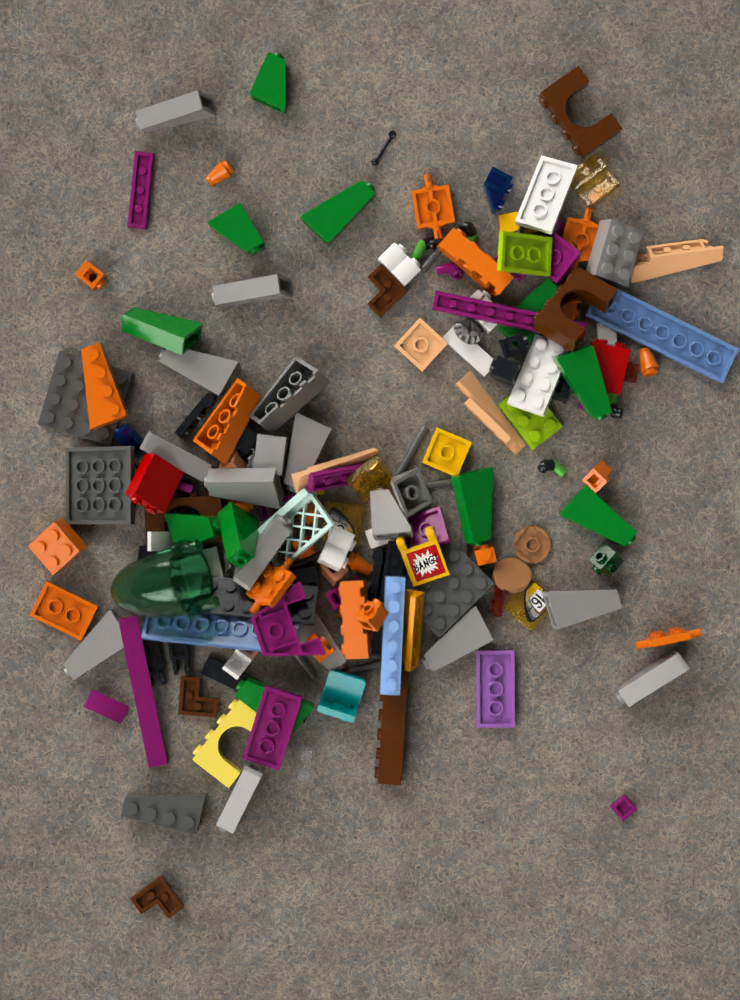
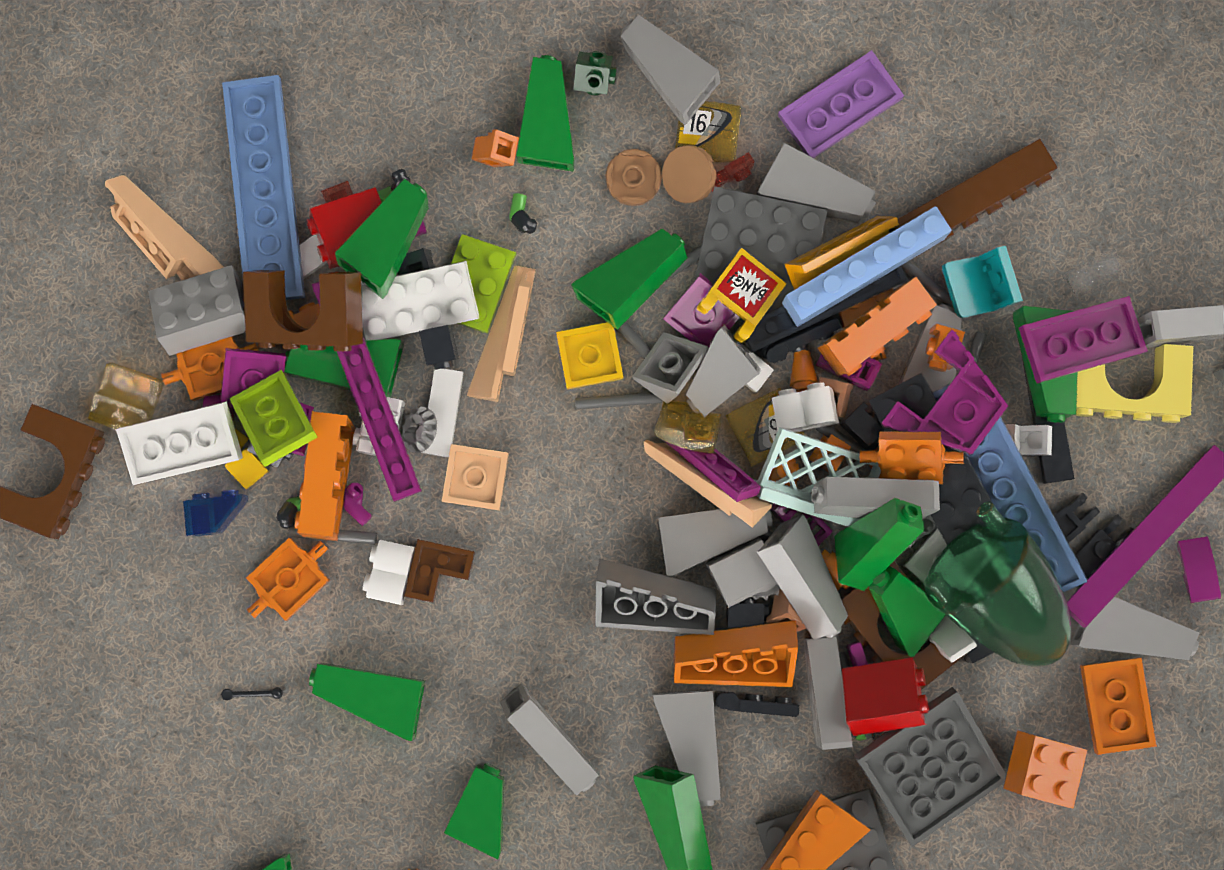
camera: 125 degrees left, 5 degrees down
(128, 436) = (843, 771): clear blue slope -> none
(191, 702) = (1117, 466): reddish brown plate -> none
(372, 615) = (862, 303): orange brick -> none
(422, 245) = (345, 558): arm -> none
(484, 554) = (686, 223): orange brick -> none
(506, 348) = (405, 366): black brick -> none
(648, 363) = (312, 182): orange cone -> none

